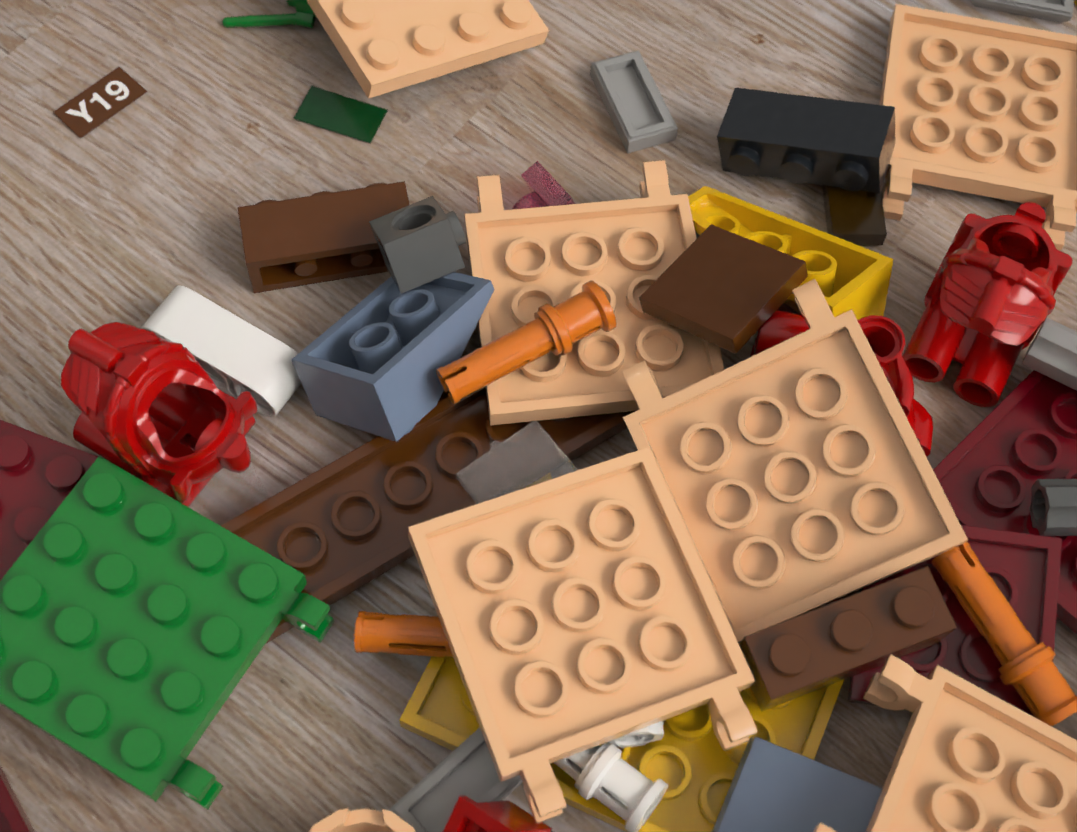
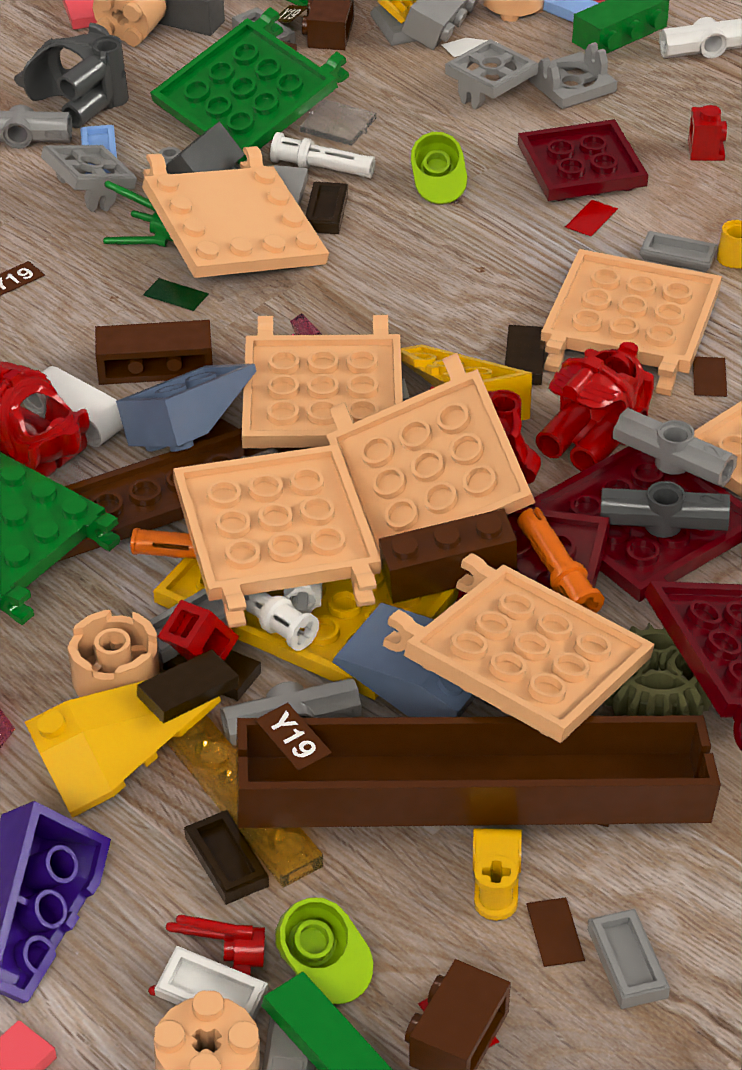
camera: 10 degrees right, 20 degrees down
(419, 243) = (212, 346): dark grey brick -> none
(550, 331) = (287, 391): orange pin -> none
(633, 101) = (381, 295): light grey tile -> none
(723, 288) = (404, 374): reddish brown tile -> none
(807, 139) = (493, 315): black brick -> none

